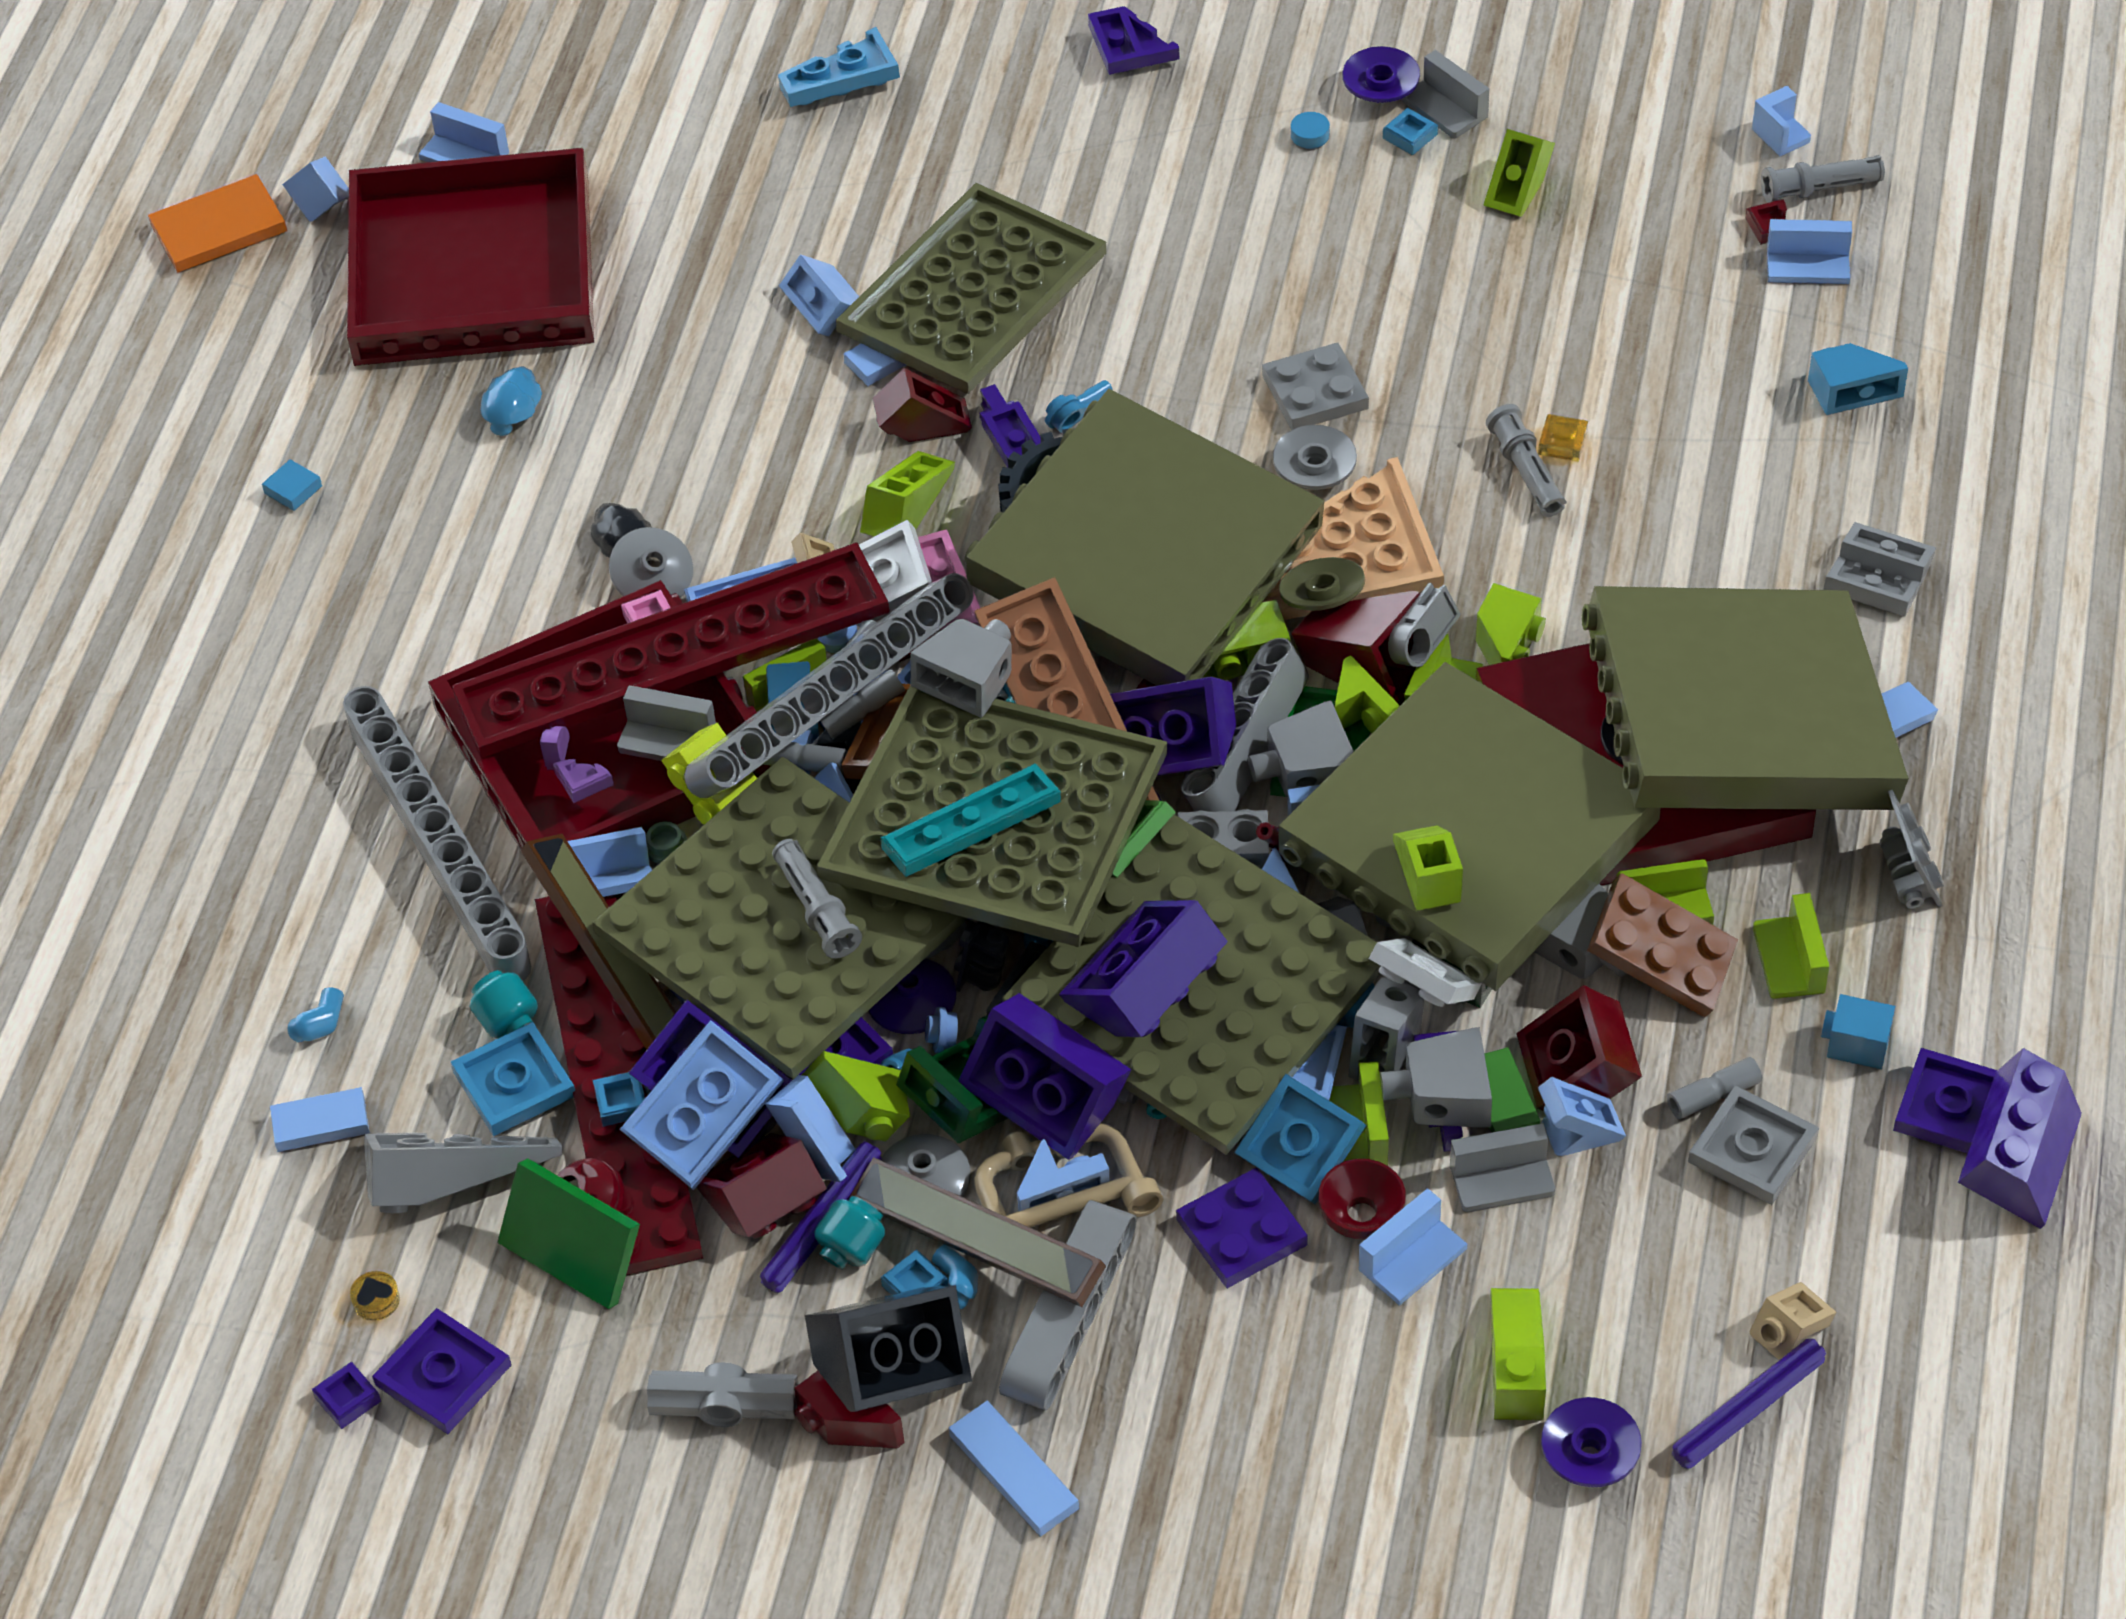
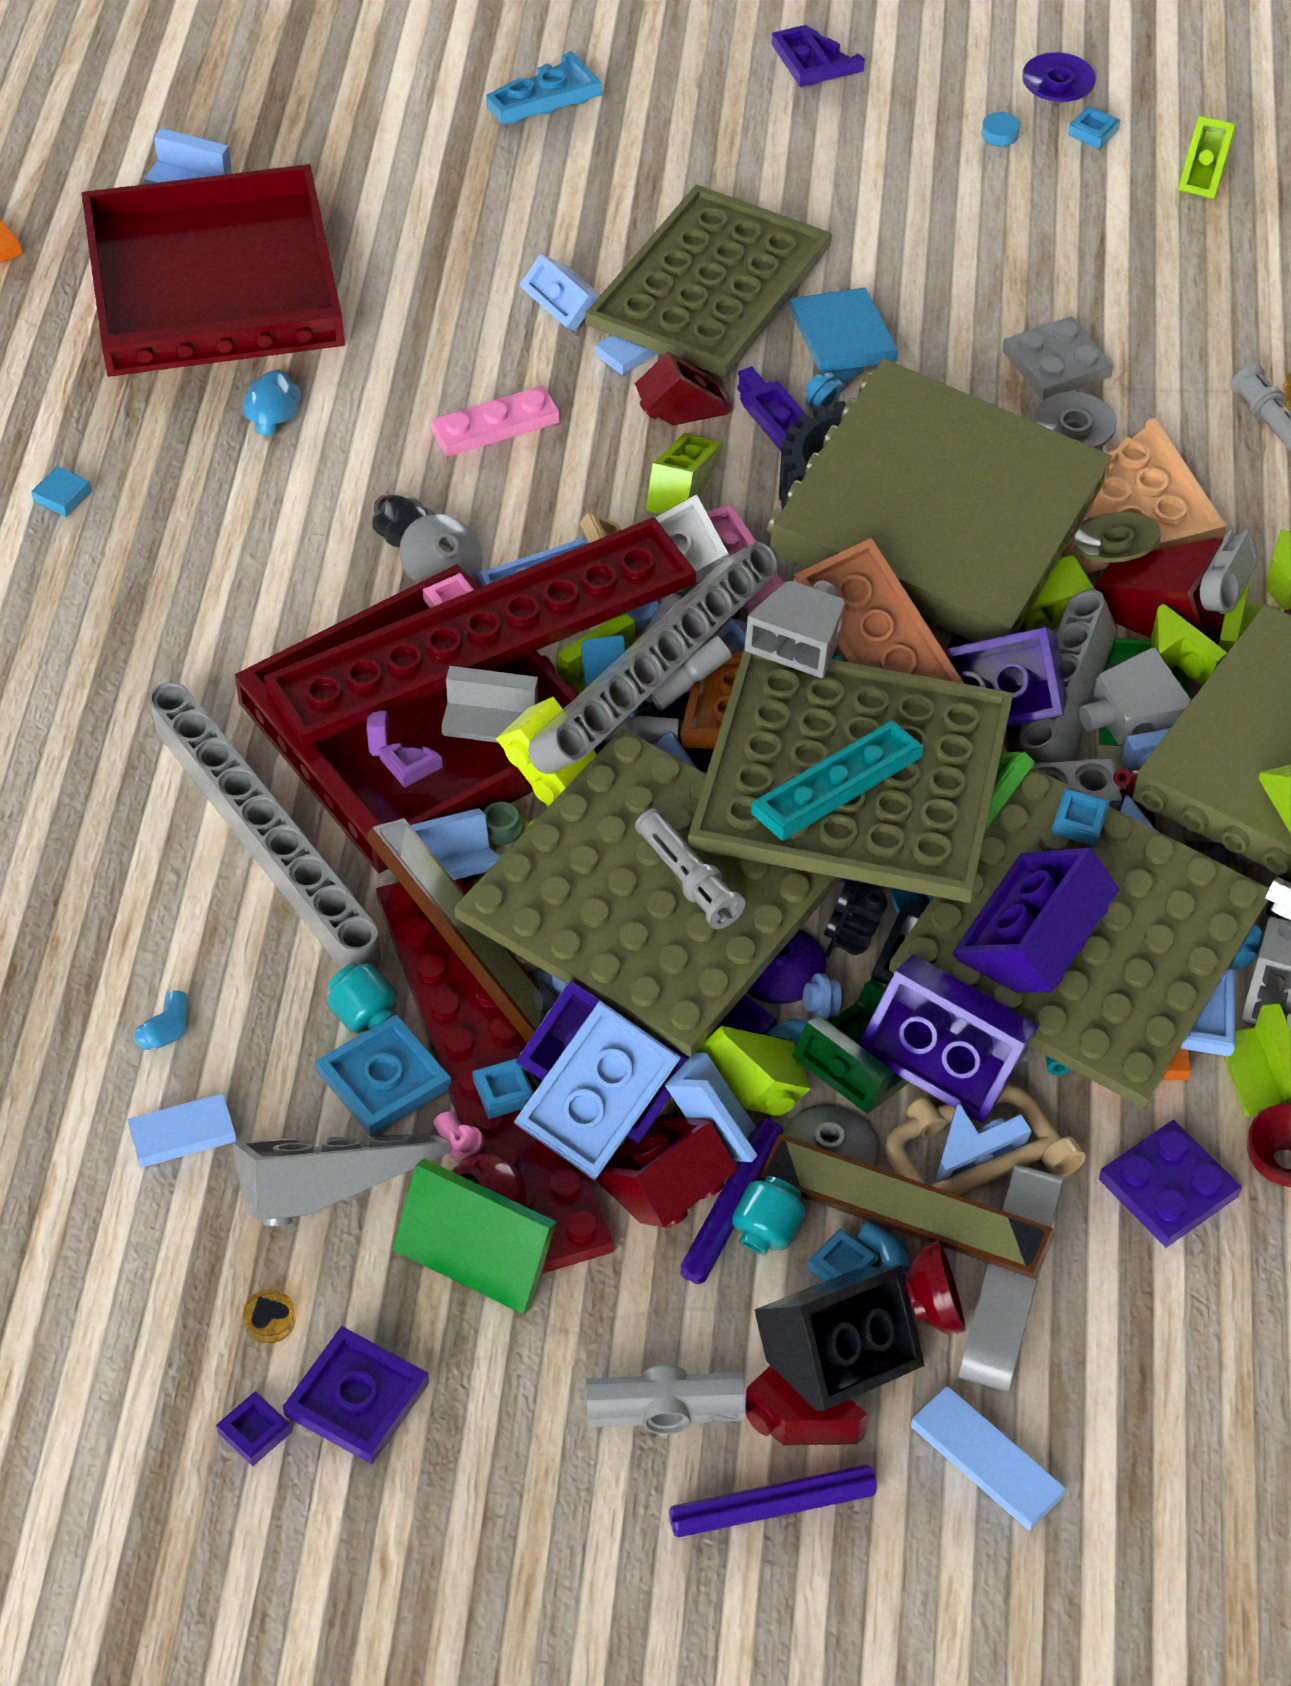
camera: 10 degrees left, 0 degrees up
(316, 188) = (48, 212): light blue panel -> none
(575, 1144) = (464, 1139): none -> bright pink arm
(730, 429) = (495, 421): none -> bright pink plate
(806, 1492) = (772, 1500): none -> dark purple axle
(991, 1310) = (934, 1290): none -> dark red piece
(1097, 348) = (843, 330): none -> dark azure tile
(1209, 868) = (1080, 817): none -> dark azure tile
(1299, 1137) = (1216, 1087): dark azure plate -> none
(1449, 96) = (1126, 93): light grey panel -> none

